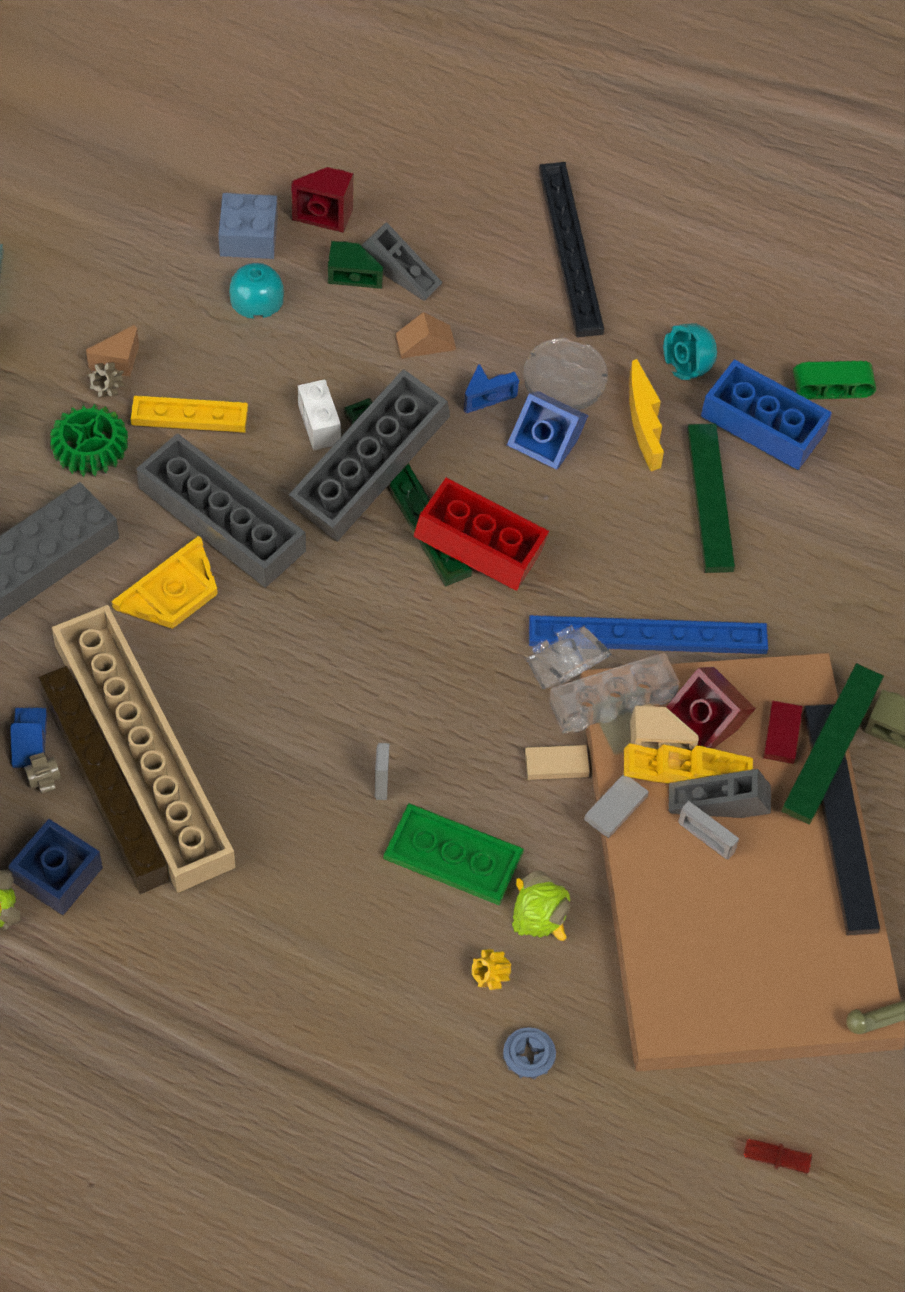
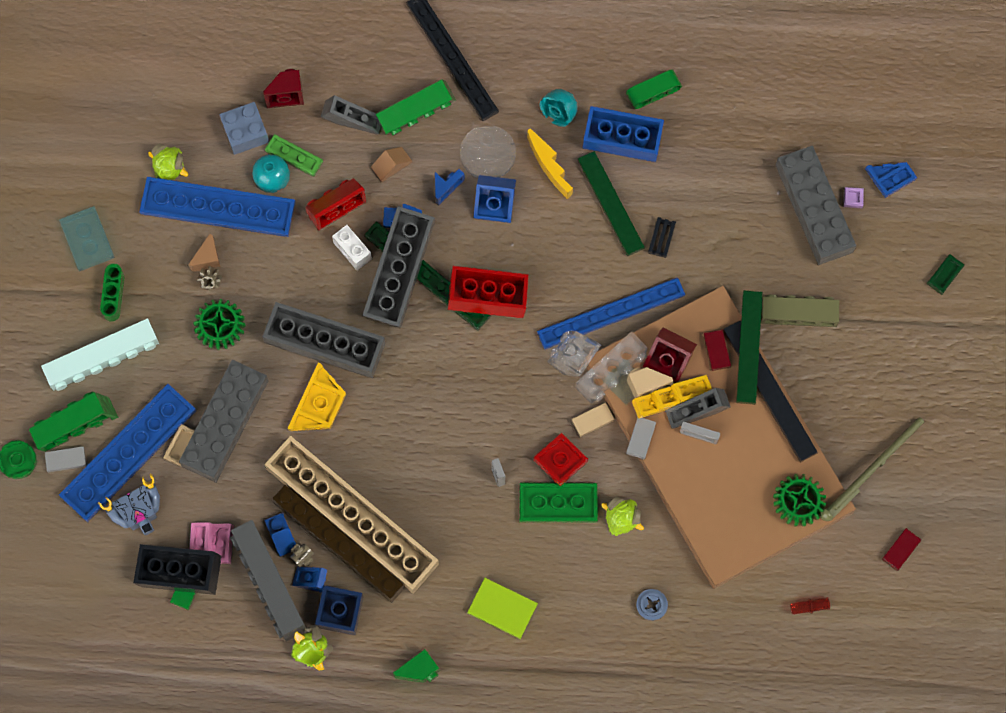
camera: 20 degrees left, 15 degrees up
(38, 807) = (310, 578): none -> blue slope
(125, 228) = (167, 162): none -> lime hair
(128, 998) = (418, 669): none -> green slope
(165, 304) = (217, 206): none -> blue plate
(189, 414) = (271, 279): yellow plate -> none
(299, 966) = (502, 608): none -> lime tile
(300, 284) = (294, 155): none -> bright green tile
(325, 356) = (336, 203): none -> red slope
(353, 266) = (323, 130): dark green slope -> none
(484, 794) = (560, 459): none -> red plate
(491, 969) = (611, 565): yellow gear -> none
(493, 280) = (416, 107): none -> green wedge
(777, 550) = (666, 222): none -> black tile
(810, 964) = (793, 497): none -> green gear

